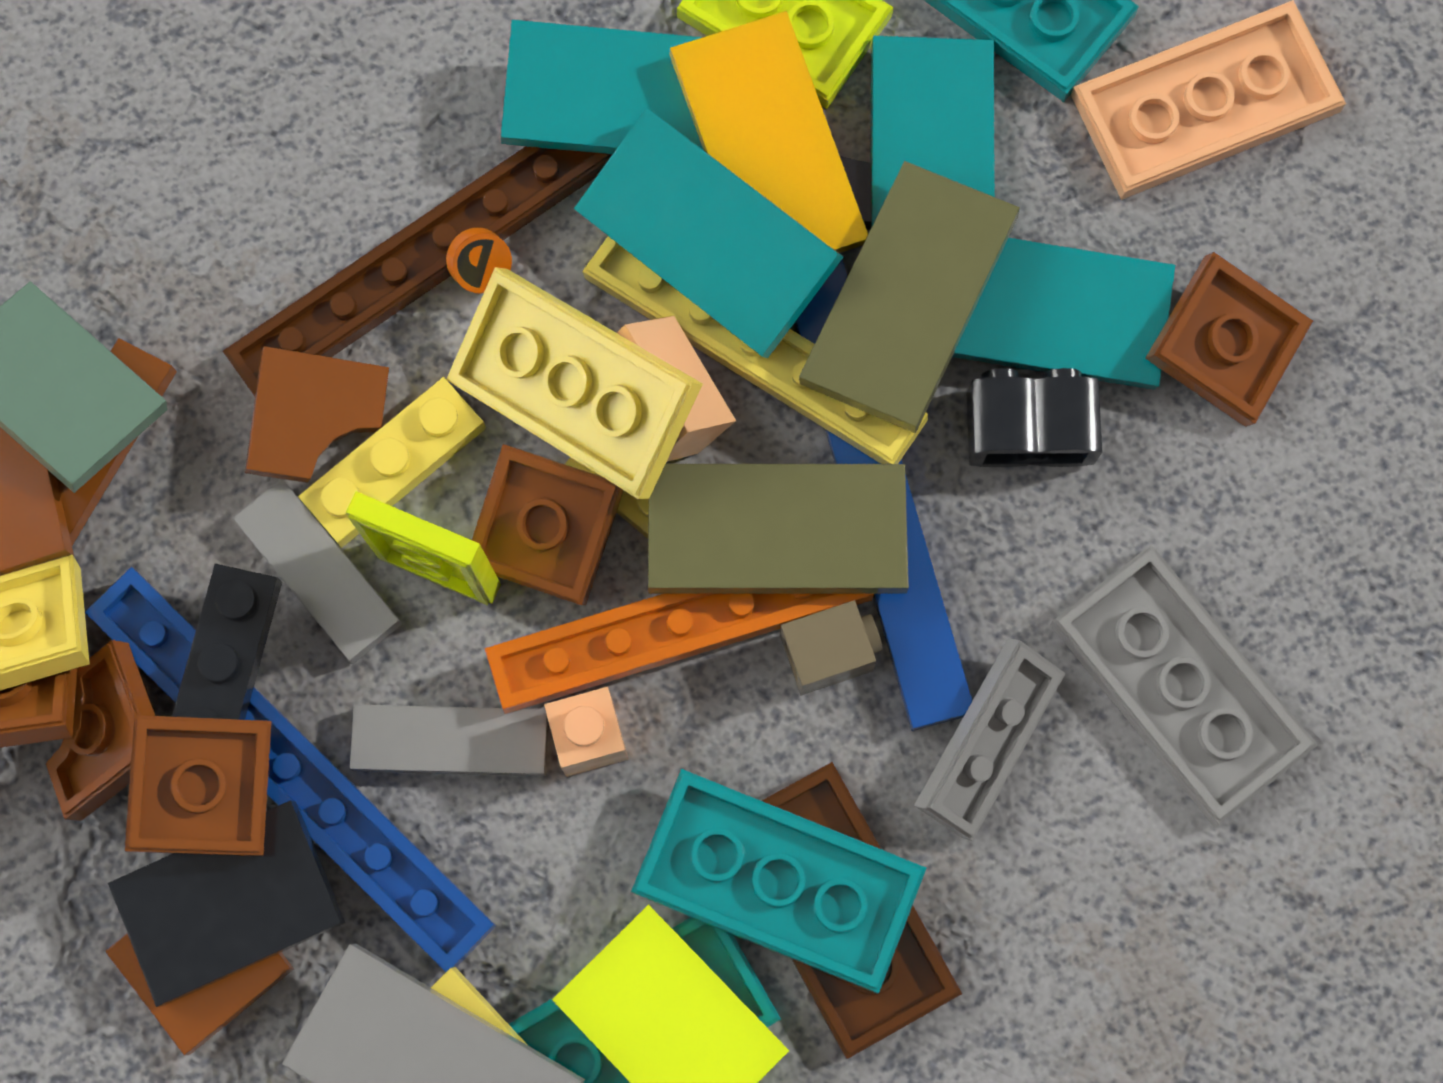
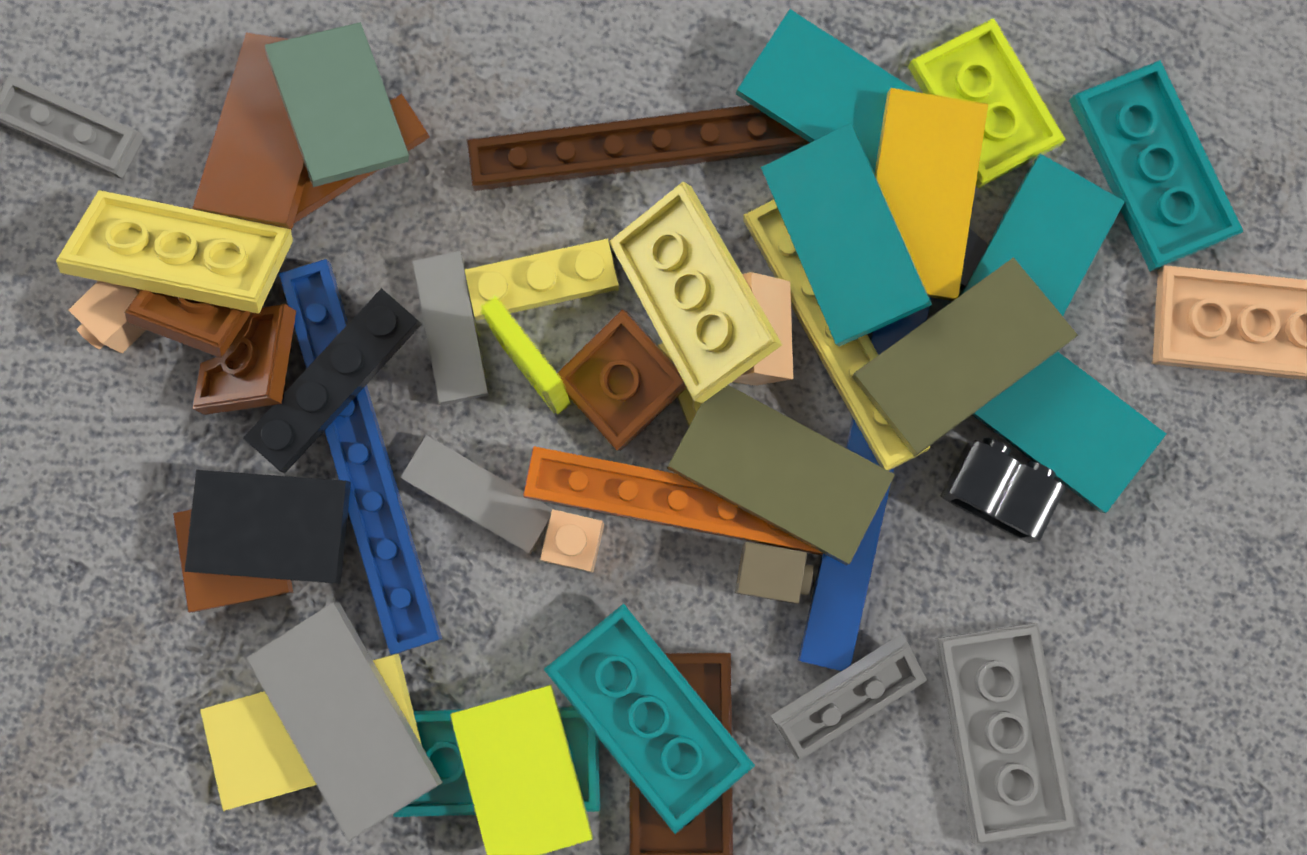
camera: 25 degrees right, 5 degrees up
(198, 786) = (286, 438): dark orange tile -> none
(308, 405) = (503, 210): dark orange tile -> none
(474, 256) = (675, 165): orange tile -> none
(1229, 339) = (1175, 507): dark orange tile -> none

